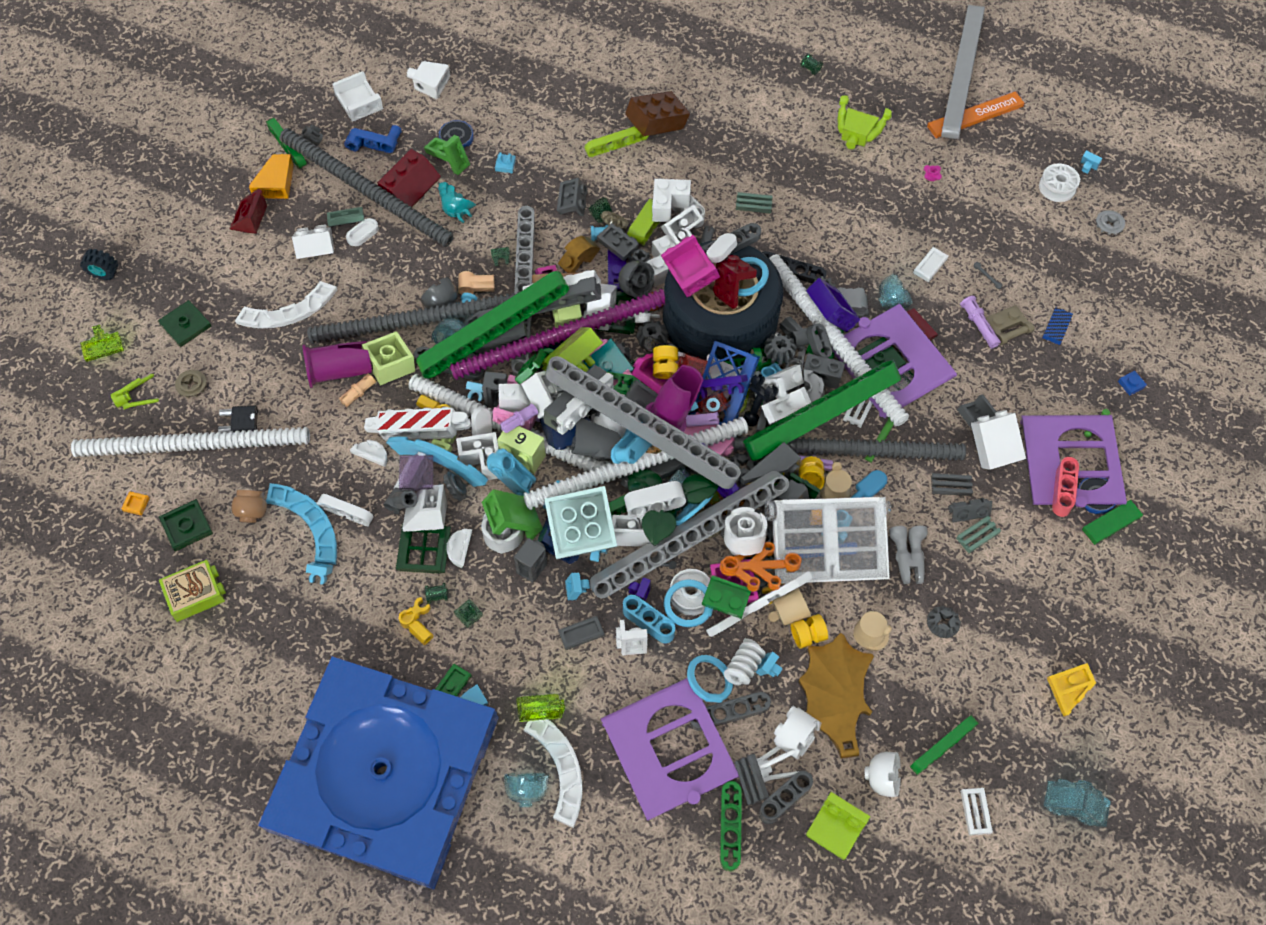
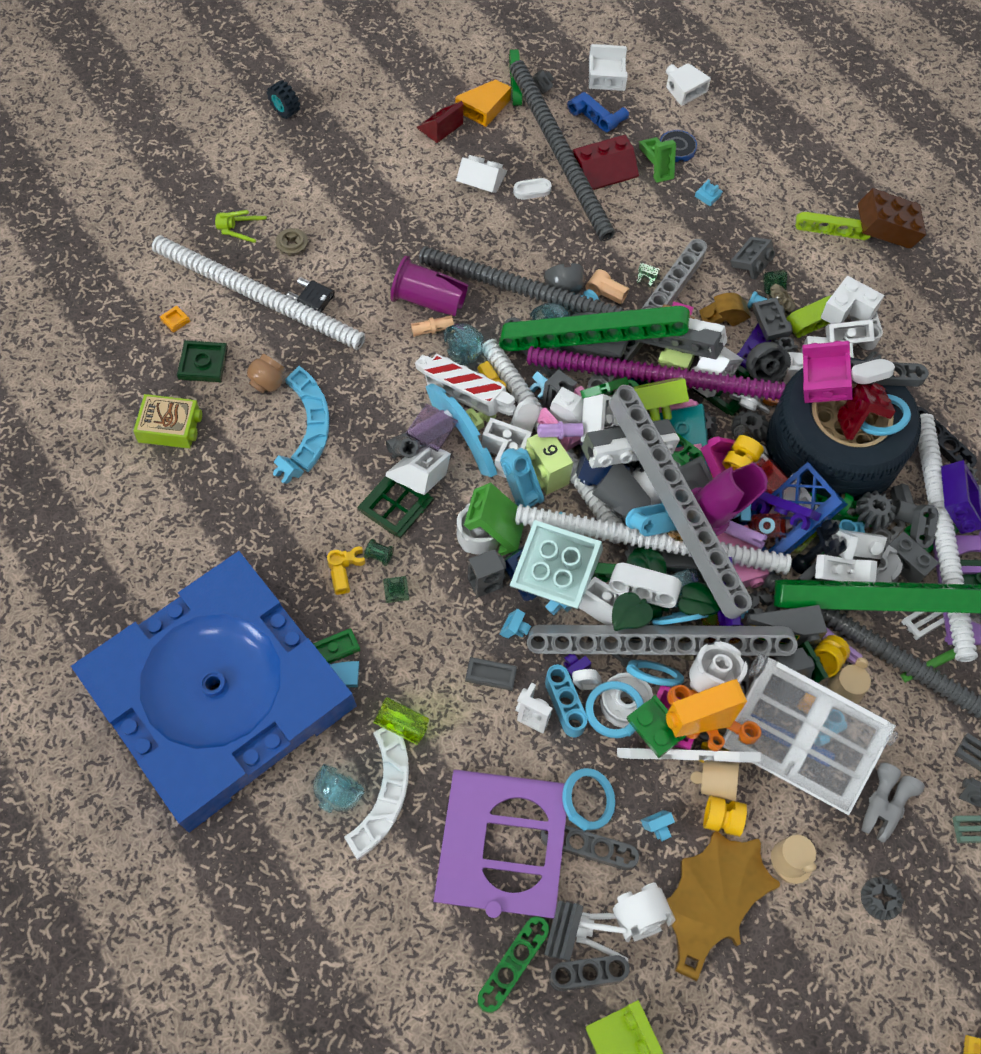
camera: 30 degrees right, 0 degrees up
(101, 344) = (240, 169): clear neon green hinge -> none
(184, 323) = (322, 187): dark green plate -> none
(289, 314) = (417, 226): white tile -> none
(345, 216) = (525, 166): sand green tile -> none
(346, 509) = (348, 426): white beam -> none
(371, 451) = (408, 388): white tile -> none
(389, 358) = (481, 309): yellowish green brick -> none
(394, 391) = (464, 343): none -> clear light blue cylinder
(453, 202) = (633, 204): teal helmet -> none
(455, 486) = (462, 462): dark grey gear -> none
(458, 545) = (428, 520): white tile -> none
(655, 594) = (586, 679): none -> white tile
(680, 563) = (633, 665): none -> medium azure piece
(744, 663) = (634, 805): white piece -> none
(754, 200) = (942, 352): sand green tile -> none
(756, 563) = (707, 709): none -> light orange slope
(871, 484) = (890, 705): dark azure piece -> none
(884, 774) = (710, 1020): white cylinder -> none
(944, 745) = (799, 1032): green beam -> none

